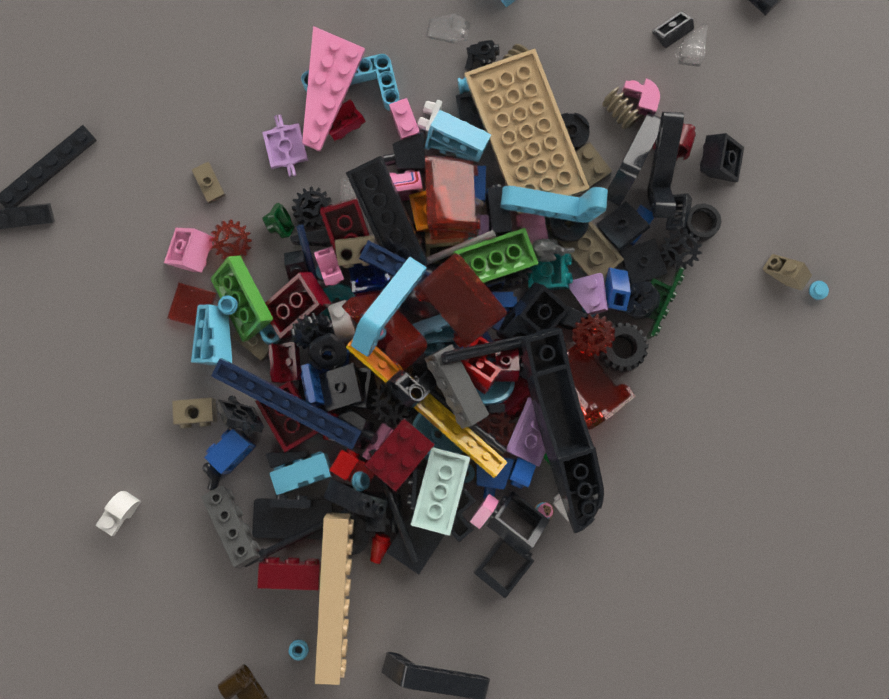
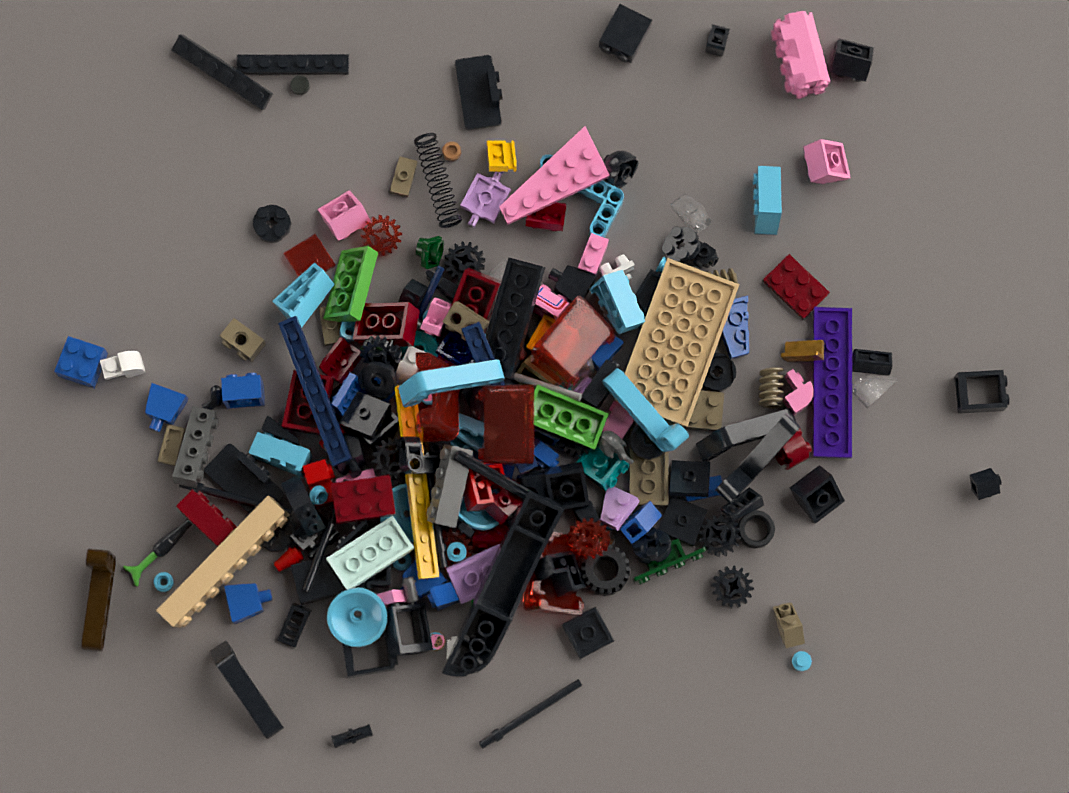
camera: 40 degrees right, 5 degrees down
(65, 179) = (300, 85): none -> pearl dark grey tile
(81, 538) = (80, 362): none -> blue brick
(127, 300) = (263, 230): none -> black plate
(178, 515) = (164, 406): none -> blue torso
(209, 70) = (479, 92): none -> black bracket
(210, 540) = (171, 445): none -> dark tan plate
(227, 305) = (336, 281): medium azure plate -> none
(228, 133) = (451, 151): none -> medium nougat tile
(239, 416) = (272, 370): black plate -> none
(269, 104) = (501, 156): none -> yellow plate
(273, 182) = (452, 218): none -> black piece
(273, 628) = (160, 549): none -> black piece
(366, 35) = (620, 166): none -> black cylinder
(375, 608) = (246, 601): none -> blue torso
(424, 576) = (303, 620): none -> black slope
(453, 55) = (677, 236): none -> plate
(479, 558) = (357, 629): none -> medium azure dish
(493, 490) = (410, 589): none -> dark grey pin
(499, 436) = (456, 558): none -> medium azure plate
(546, 638) = (338, 740): none -> black pin
(563, 92) = (735, 332): none -> wing
(571, 20) = (796, 286): none -> dark red plate
(595, 377) = (563, 571): none -> black brick
(620, 61) = (803, 351): none -> pearl gold panel
(649, 405) = (587, 633): none -> black plate
(651, 540) = (497, 734): none -> black bar
(660, 65) = (833, 384): none -> dark purple plate
(724, 287) = (724, 582): none -> black gear
(833, 48) = (985, 483): none -> black brick

